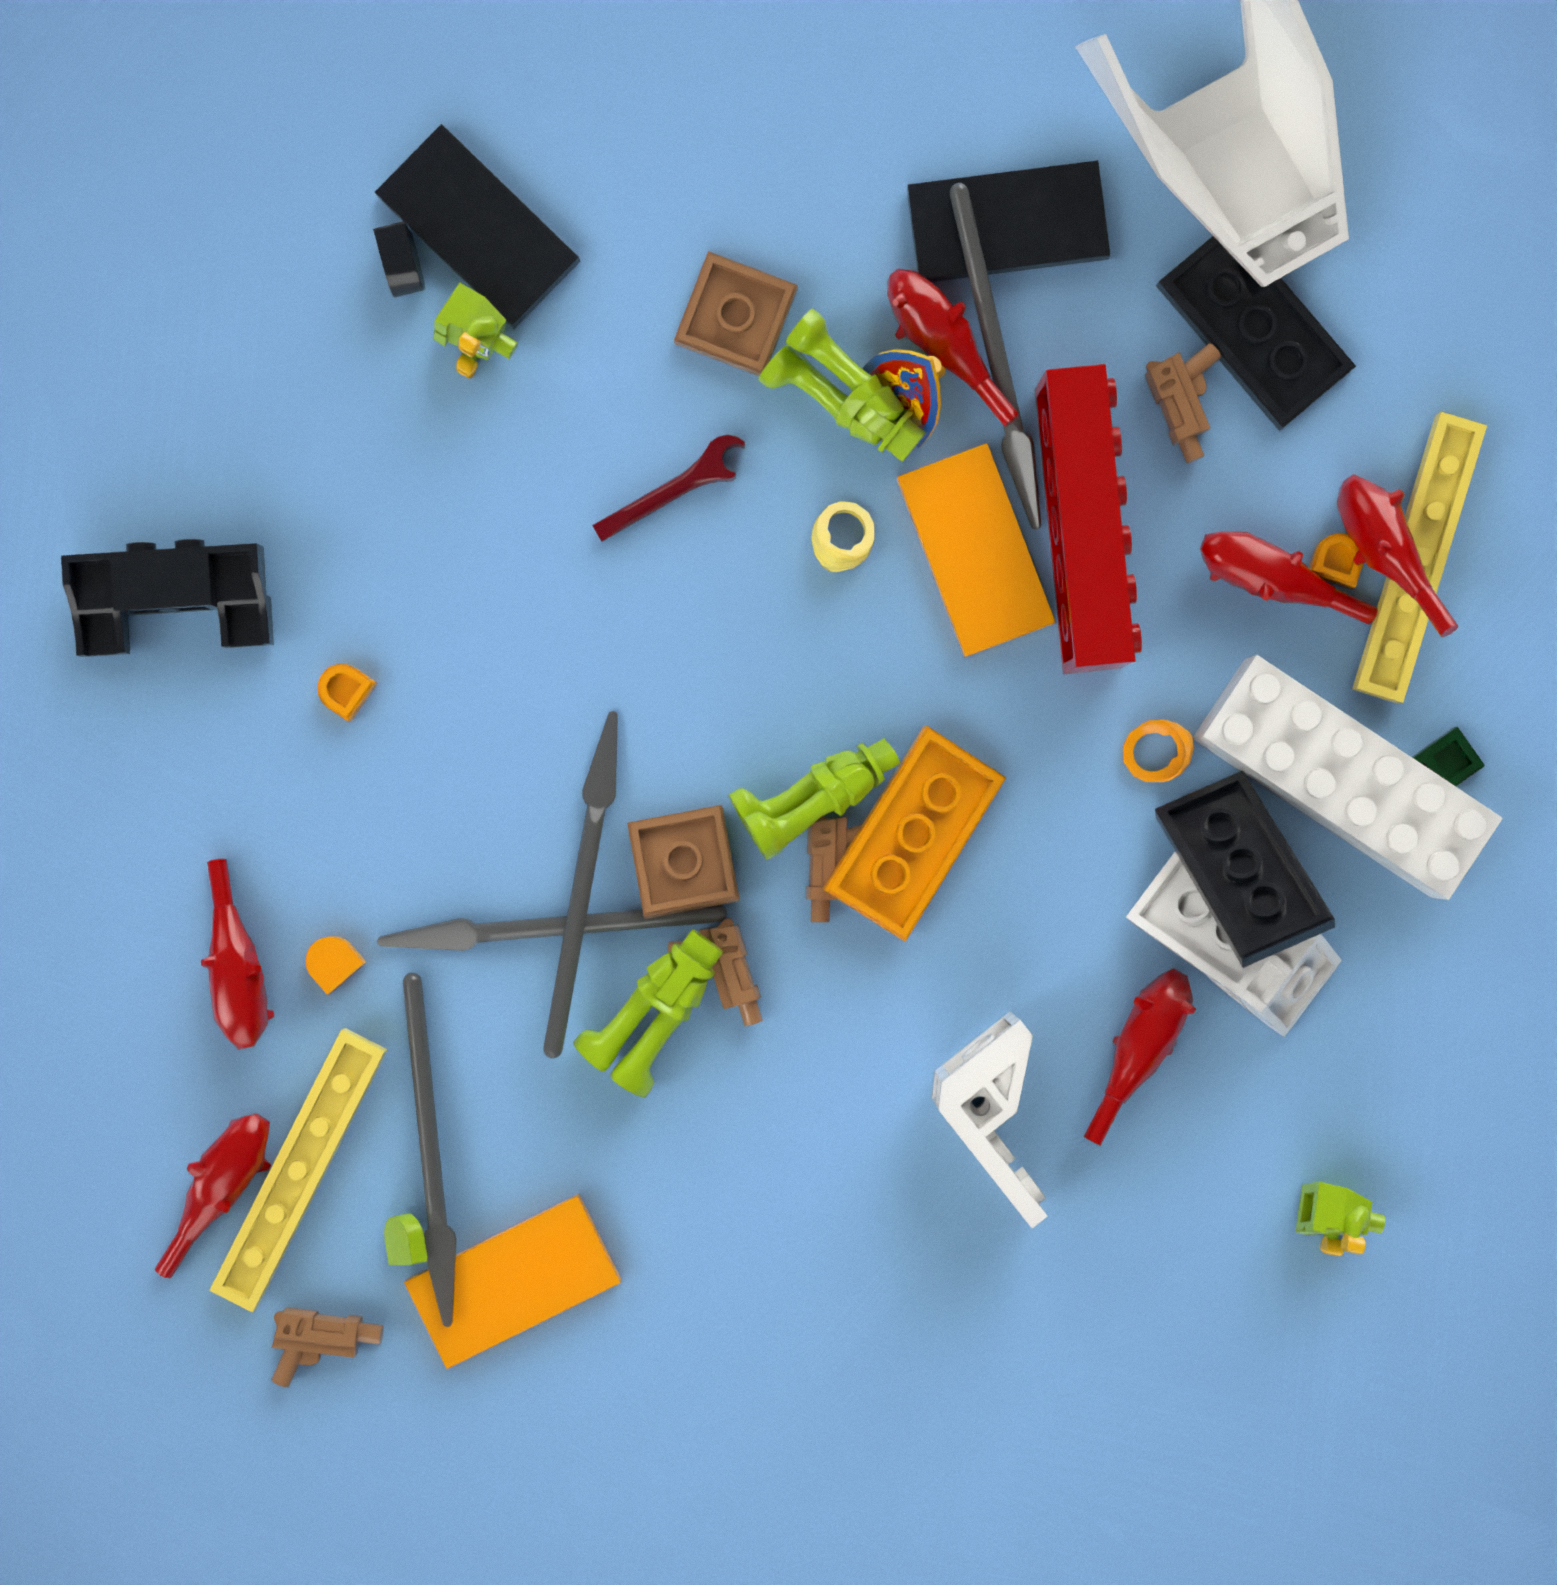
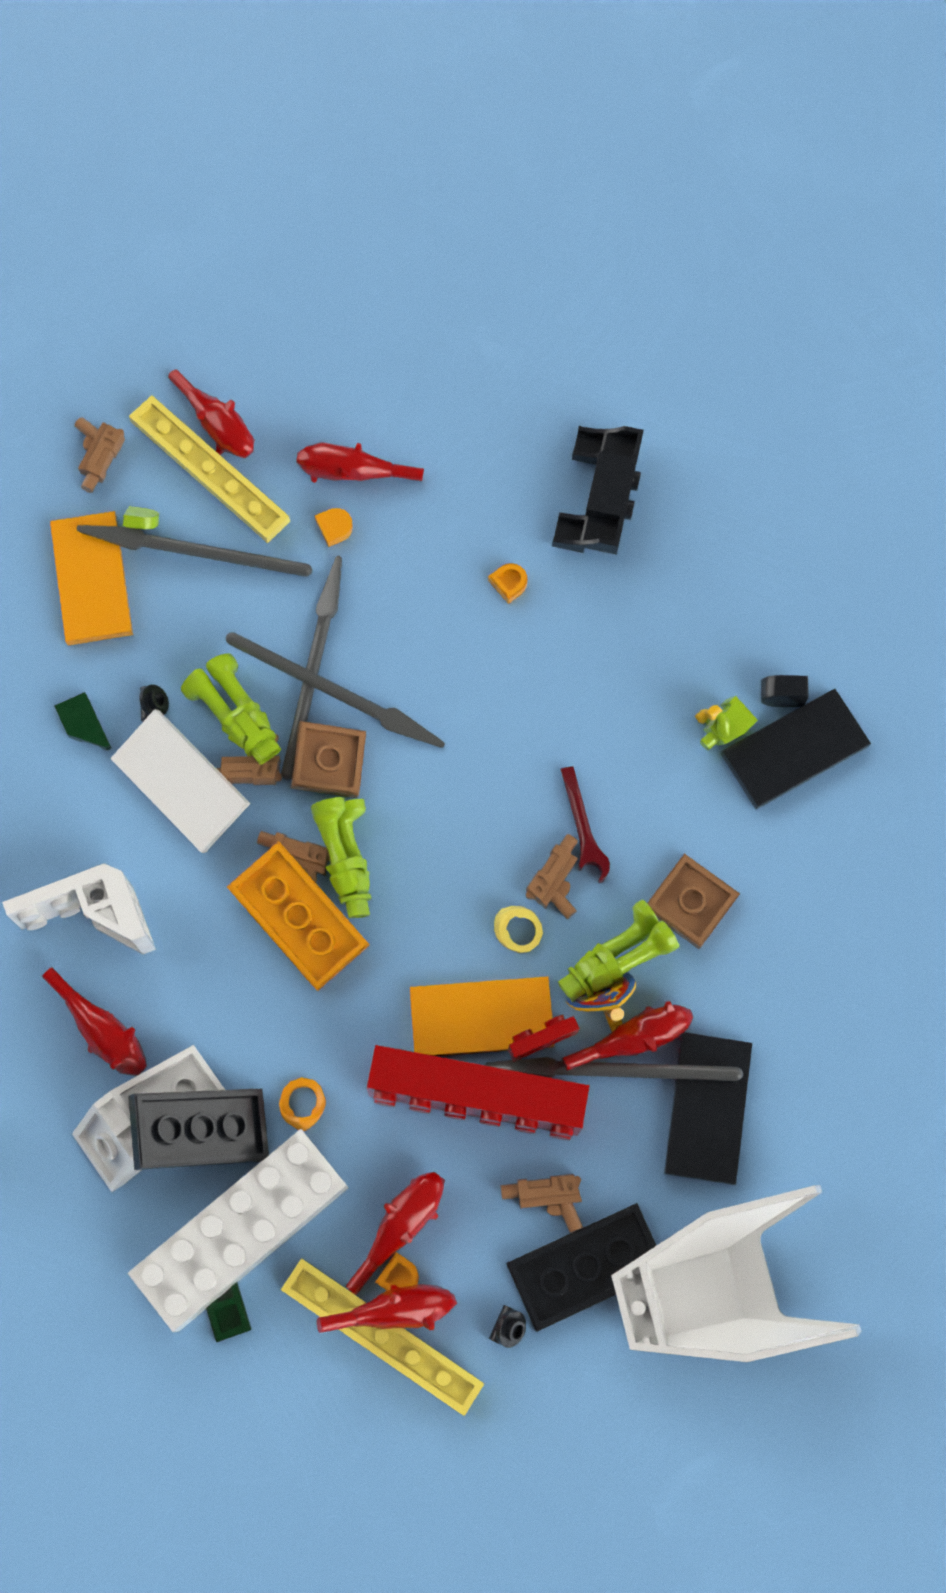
camera: 100 degrees right, 15 degrees down
(672, 1130) = (152, 698): none -> black plate
(727, 1219) = (81, 721): none -> dark green tile
(767, 511) = (550, 883): none -> medium nougat piece
(774, 1054) = (180, 781): none -> white tile
(974, 442) = (556, 1030): none -> red plate
(1360, 402) = (509, 1327): none -> black plate

